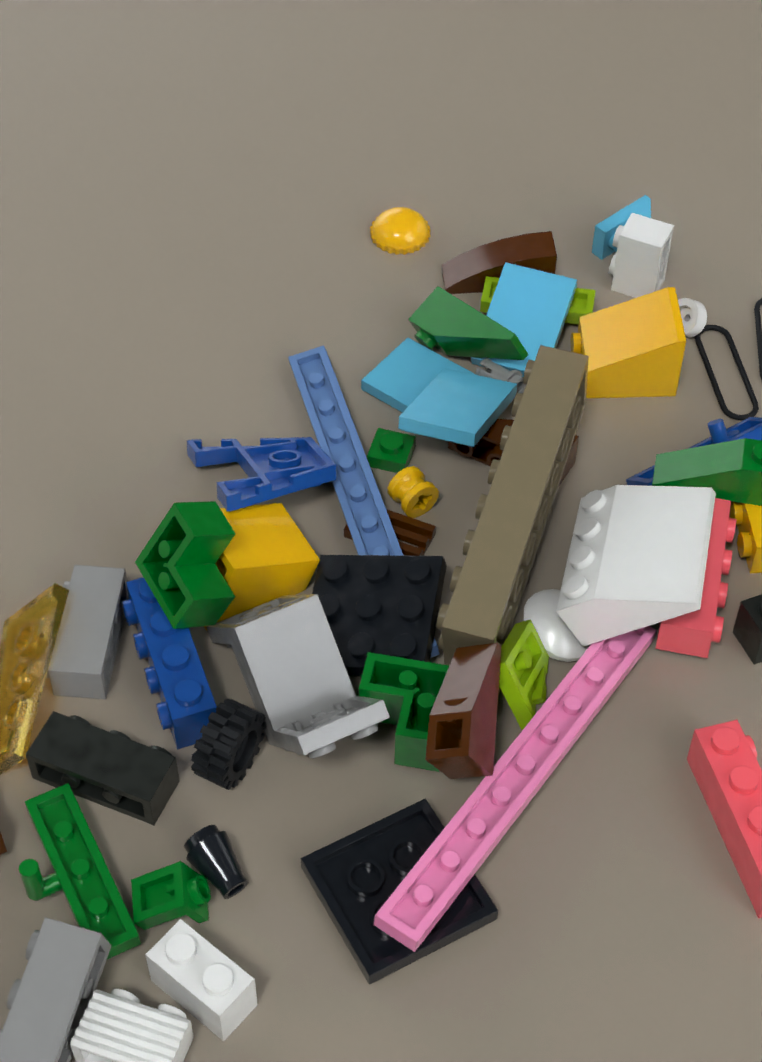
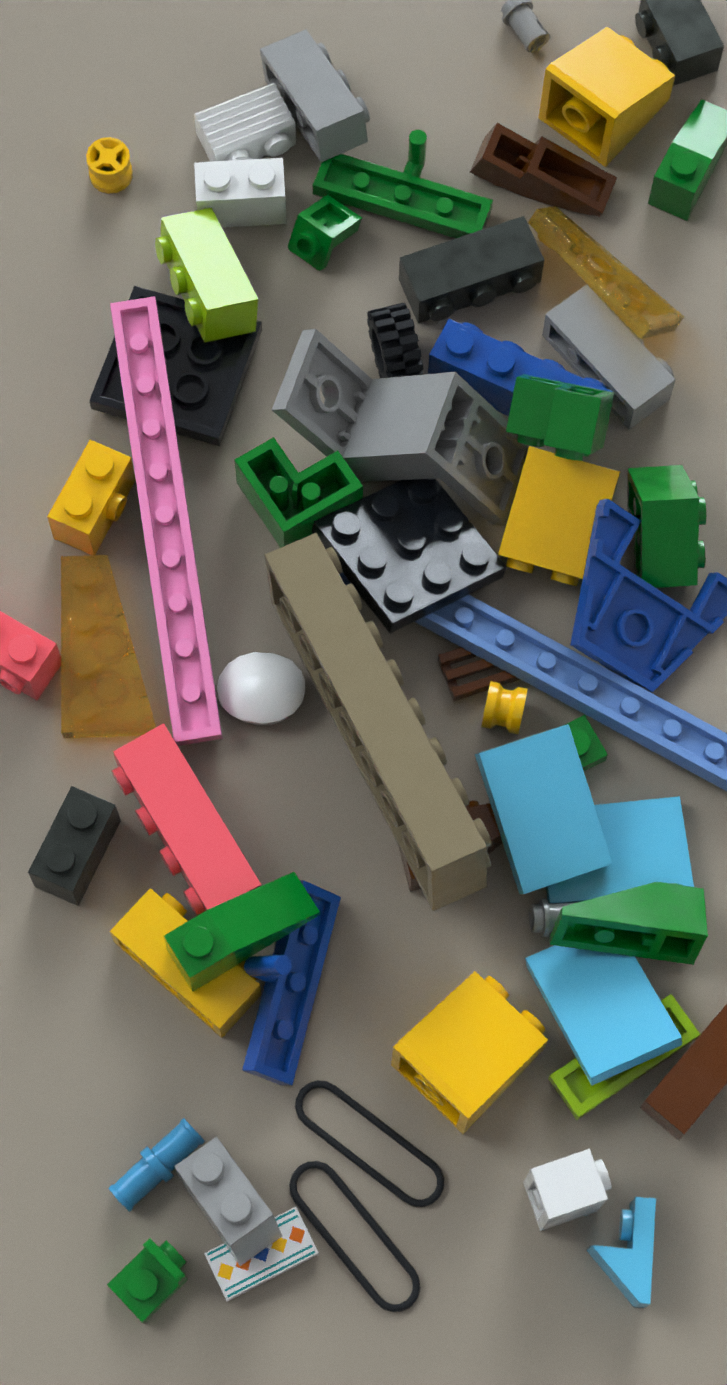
camera: 135 degrees right, 20 degrees up
(183, 479) = (670, 517): none -> green brick
(215, 859) = (321, 278): black cone -> none
(307, 919) = (207, 275): none -> brick
(466, 714) = (233, 488): reddish brown slope -> none
(523, 671) = (245, 602): lime wing -> none
(565, 832) = (92, 498): none -> yellow brick
(635, 559) = (233, 761): white slope -> none
(655, 738) = (98, 661): none -> clear yellow wing
(693, 316) = (457, 1168): white tile -> none

